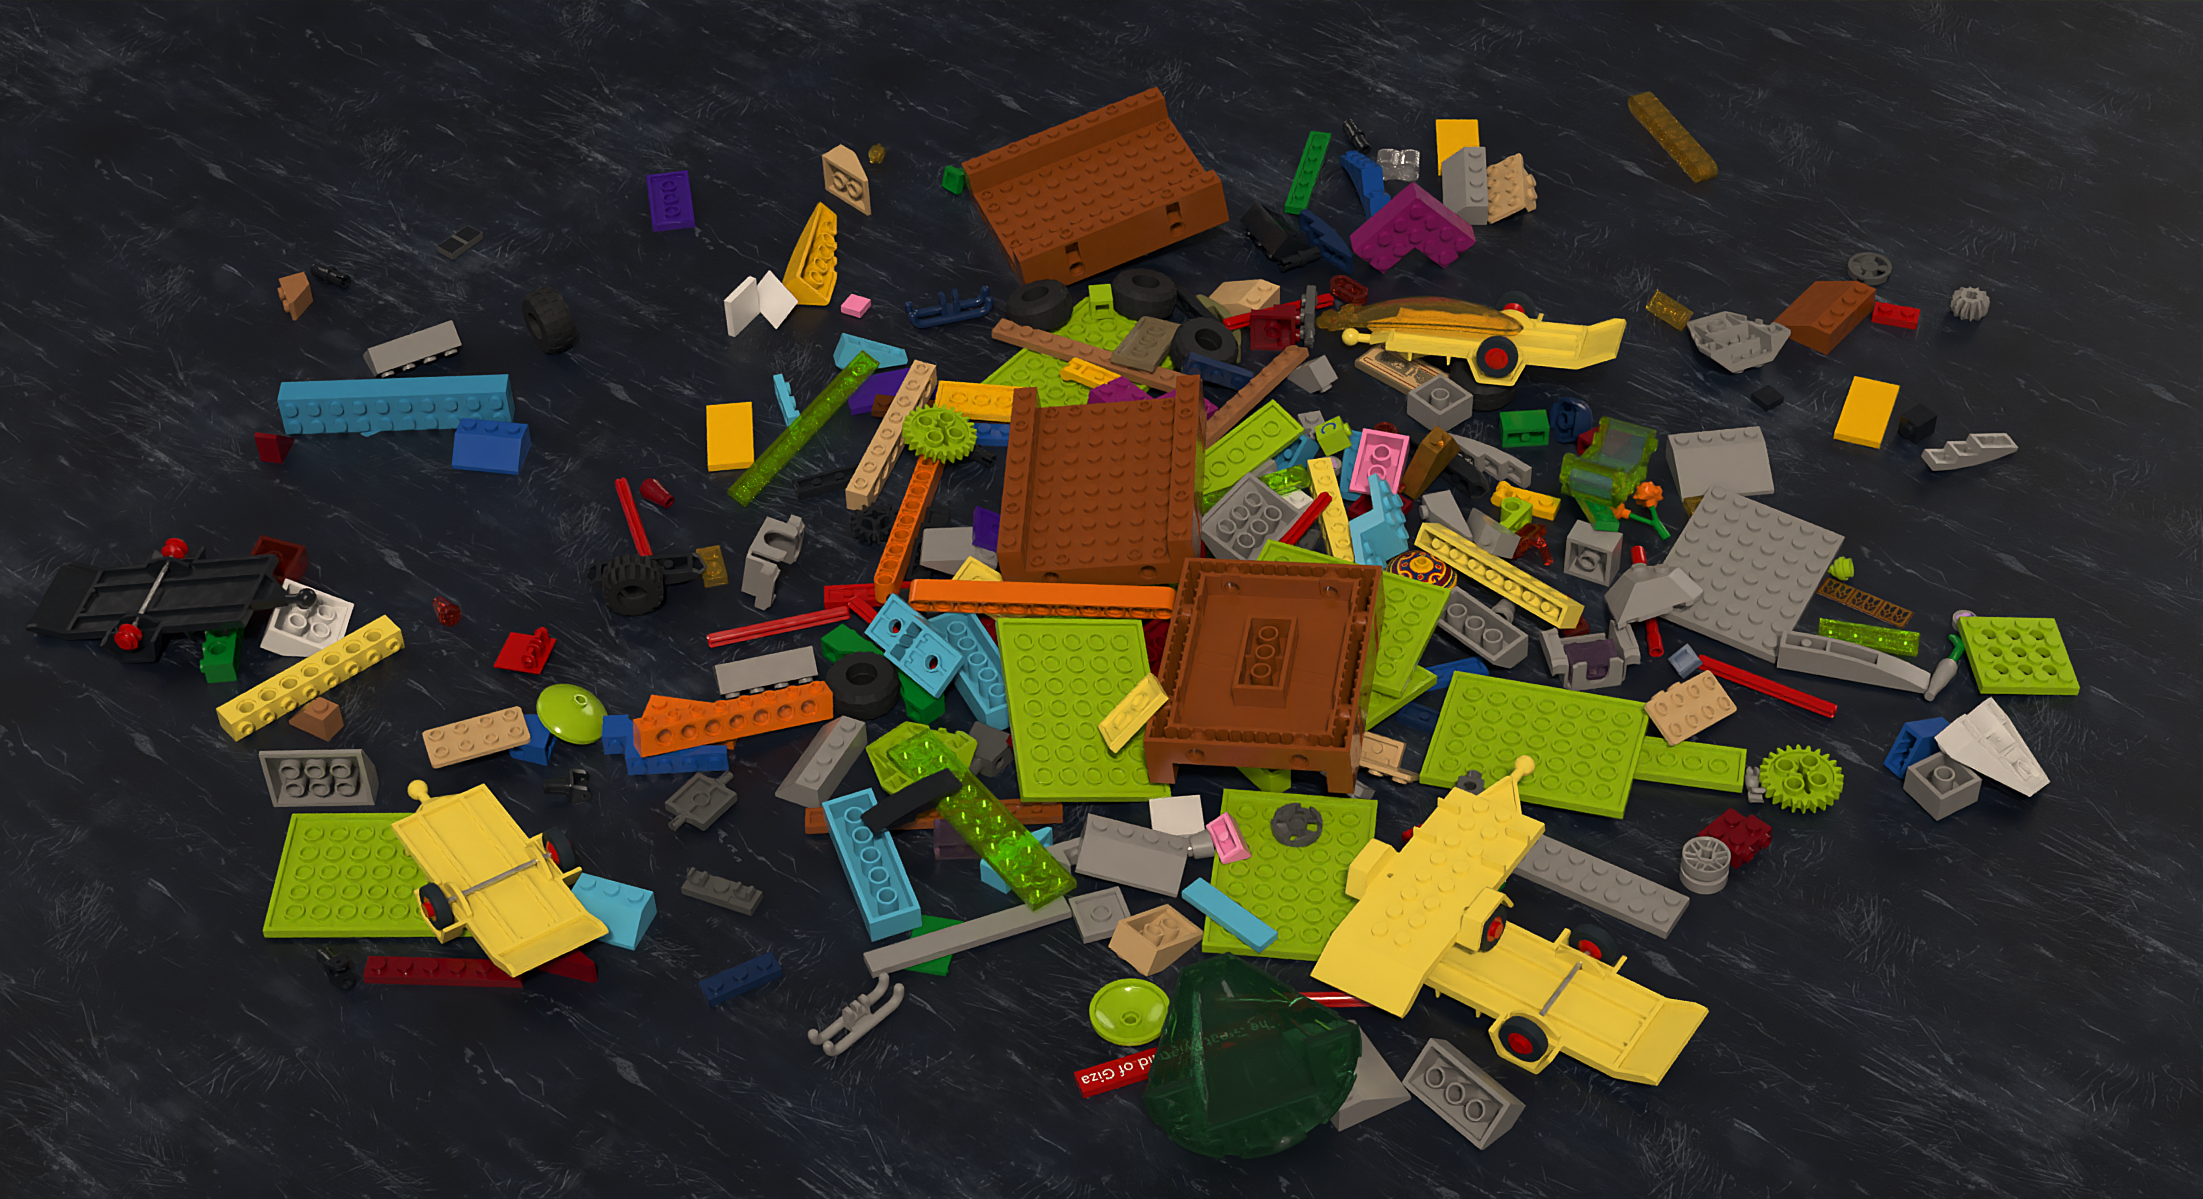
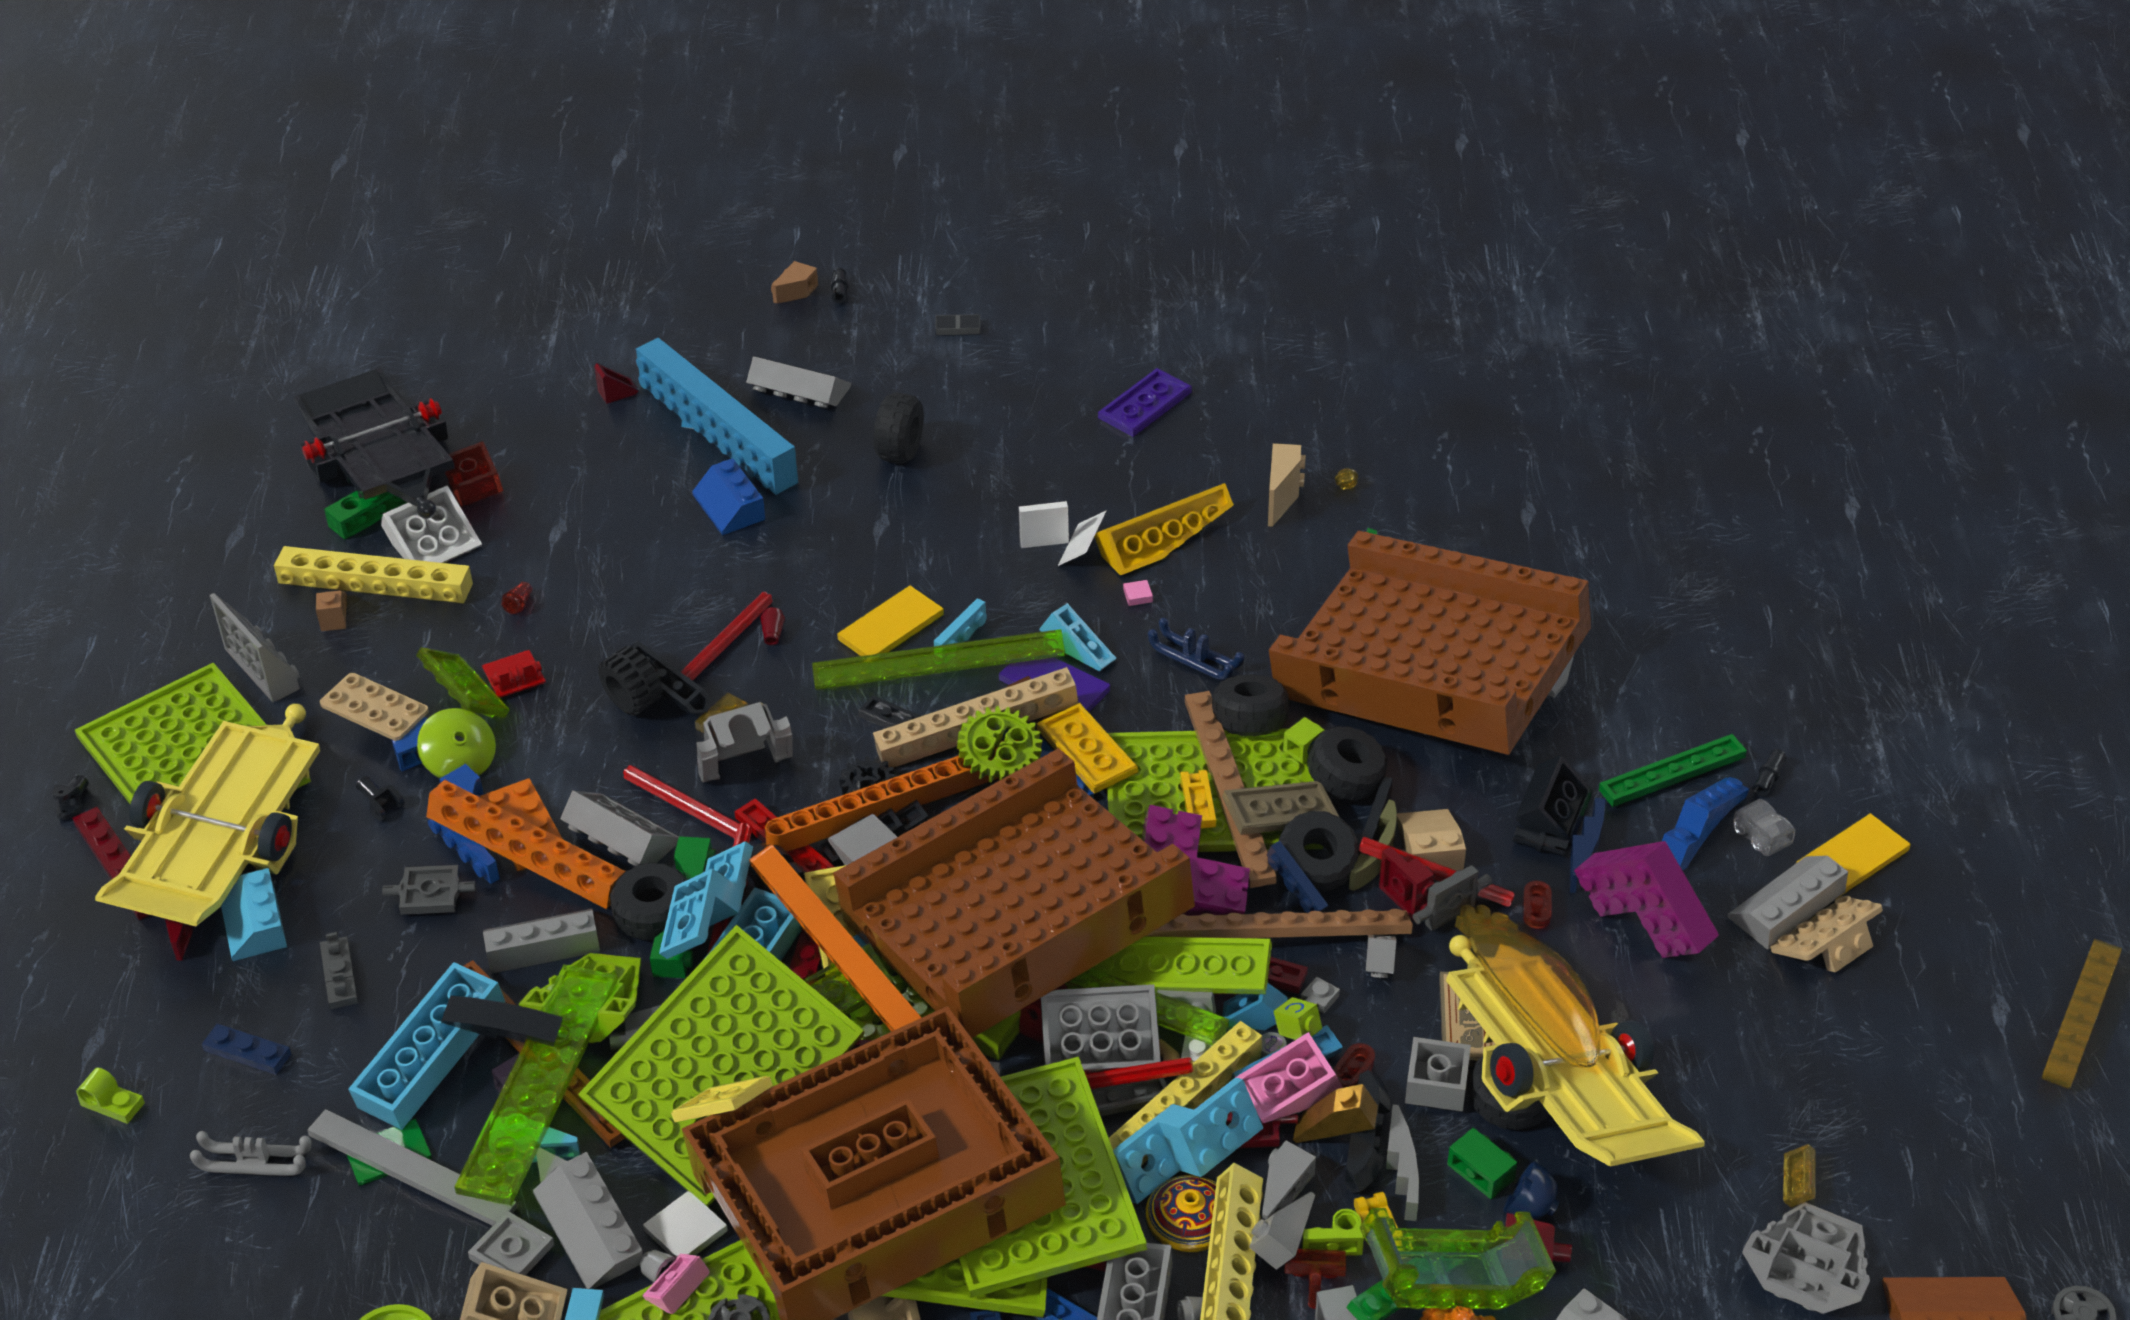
camera: 50 degrees right, 0 degrees up
(501, 680) = (462, 682): none -> clear neon green plate
(697, 1081) = (103, 1095): none -> lime plate

